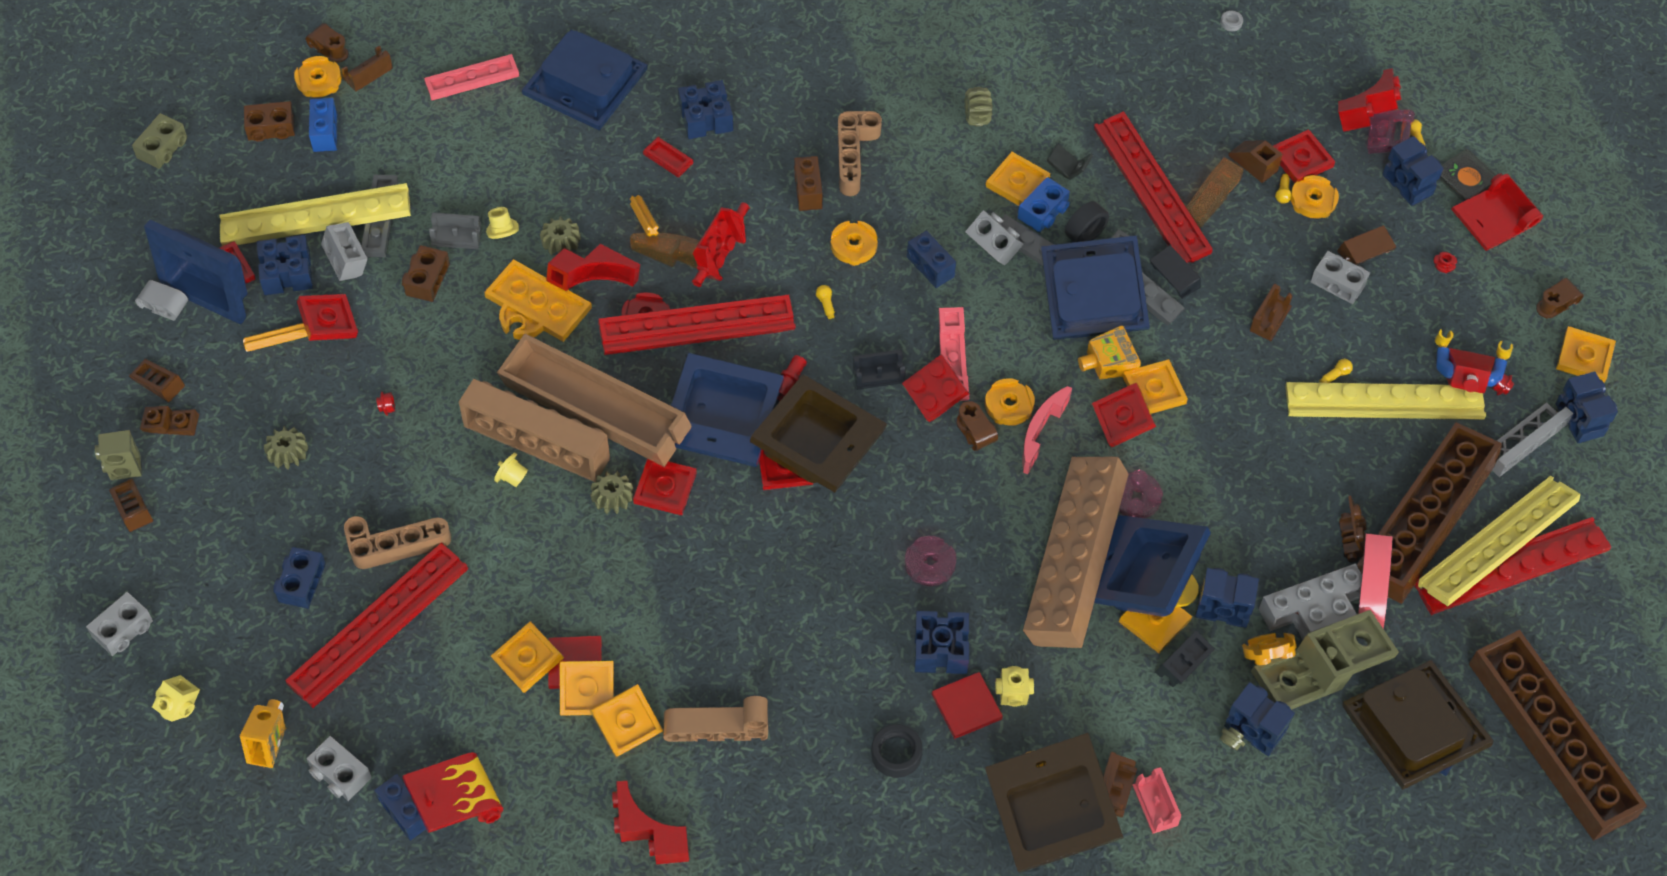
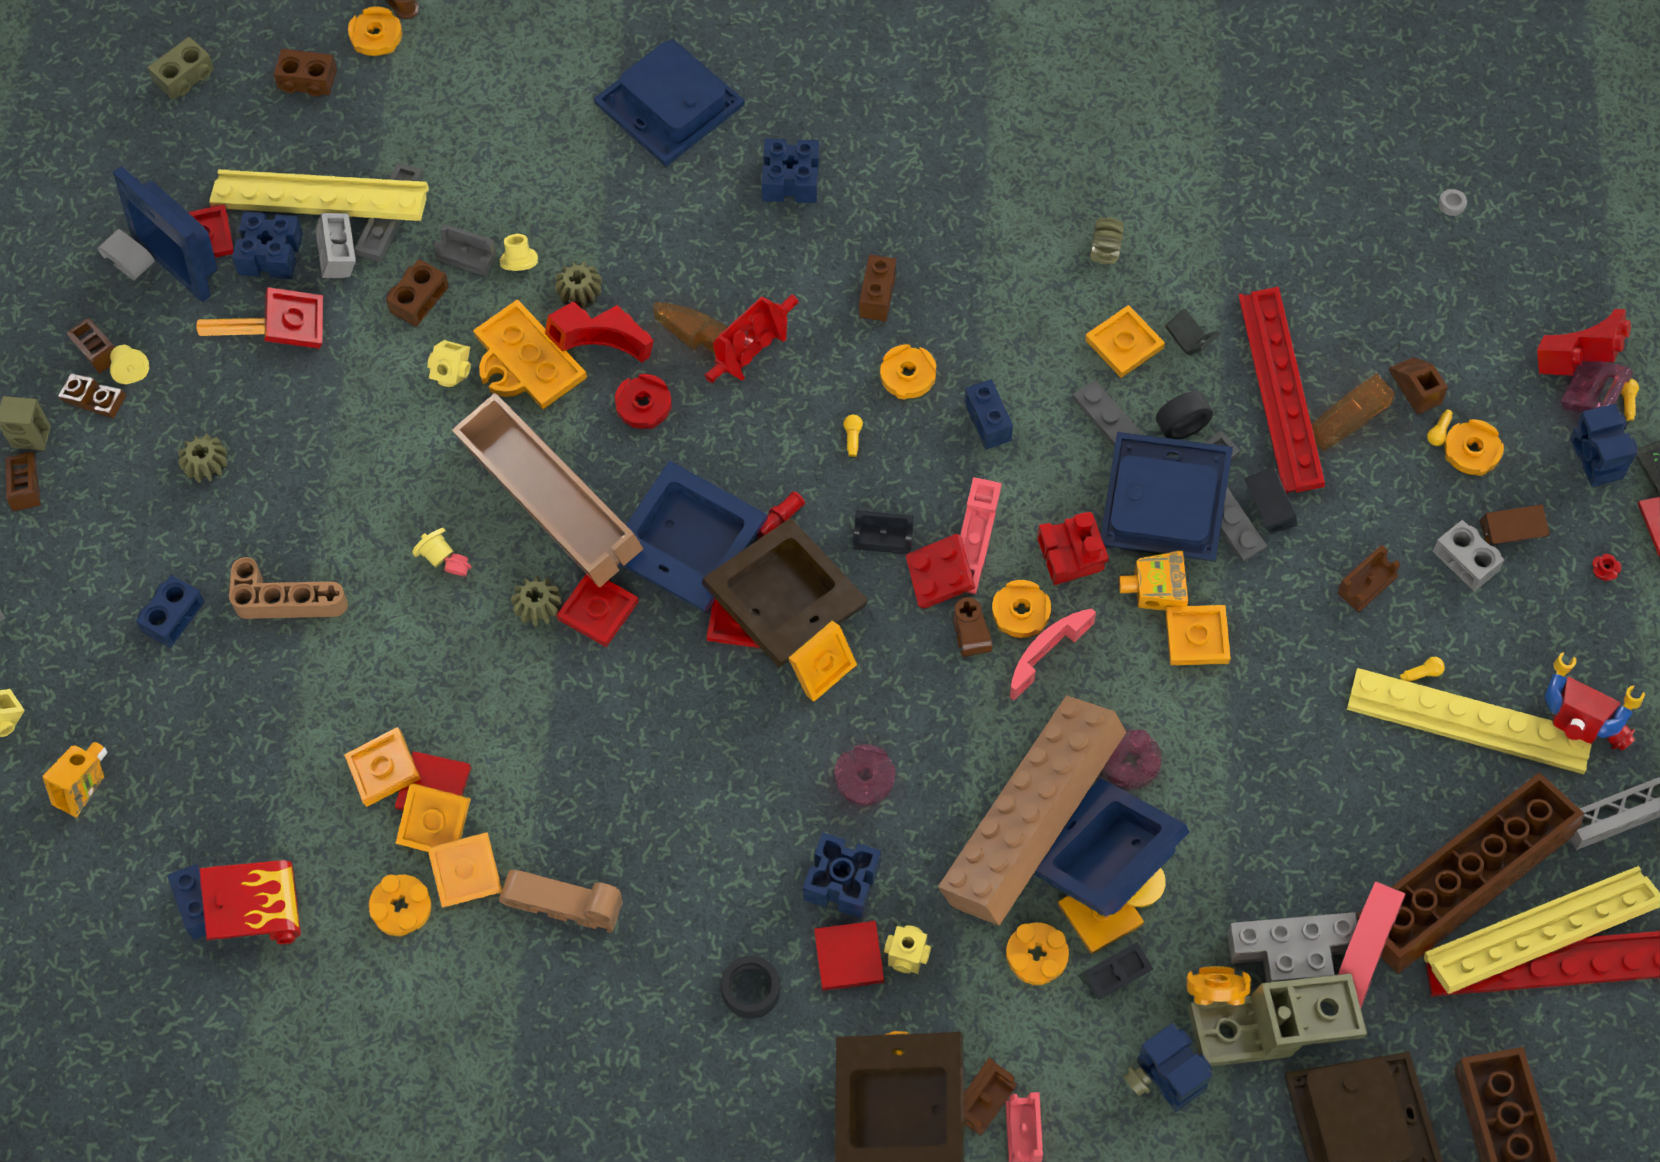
camera: 20 degrees right, 5 degrees up
(194, 387) = (128, 364): none -> light yellow piece
(323, 124) = (361, 90): blue brick -> none
(343, 765) = (145, 837): light grey brick -> none
(368, 70) = (432, 36): reddish brown hinge -> none
(376, 625) = (235, 686): red plate -> none
(385, 403) = (324, 431): red plate -> none
(471, 77) = (543, 70): coral plate -> none
(474, 314) = (449, 363): none -> light yellow brick
(534, 429) = (473, 507): medium nougat brick -> none
(535, 480) = (457, 565): none -> coral plate
(577, 749) = (391, 890): none -> light orange plate
(644, 215) = (677, 283): light orange axle -> none
(666, 843) = (462, 1022): red arch -> none
(668, 157) = (731, 217): red tile -> none
(696, 324) = (694, 427): red plate -> none
(853, 128) = (938, 263): medium nougat beam -> none
(867, 479) = (822, 661): none -> light orange plate
(992, 240) = (1066, 410): light grey brick -> none
(1034, 345) = (1072, 548): none -> red hips
(1043, 205) = (1139, 375): blue brick -> none
(1123, 650) = (1047, 967): none -> light orange plate
(1124, 415) = (1147, 659): red plate -> none
(1227, 597) = (1188, 911): dark blue brick -> none
(1303, 156) = (1477, 393): red plate -> none
(1352, 532) = (1373, 866): reddish brown hinge -> none

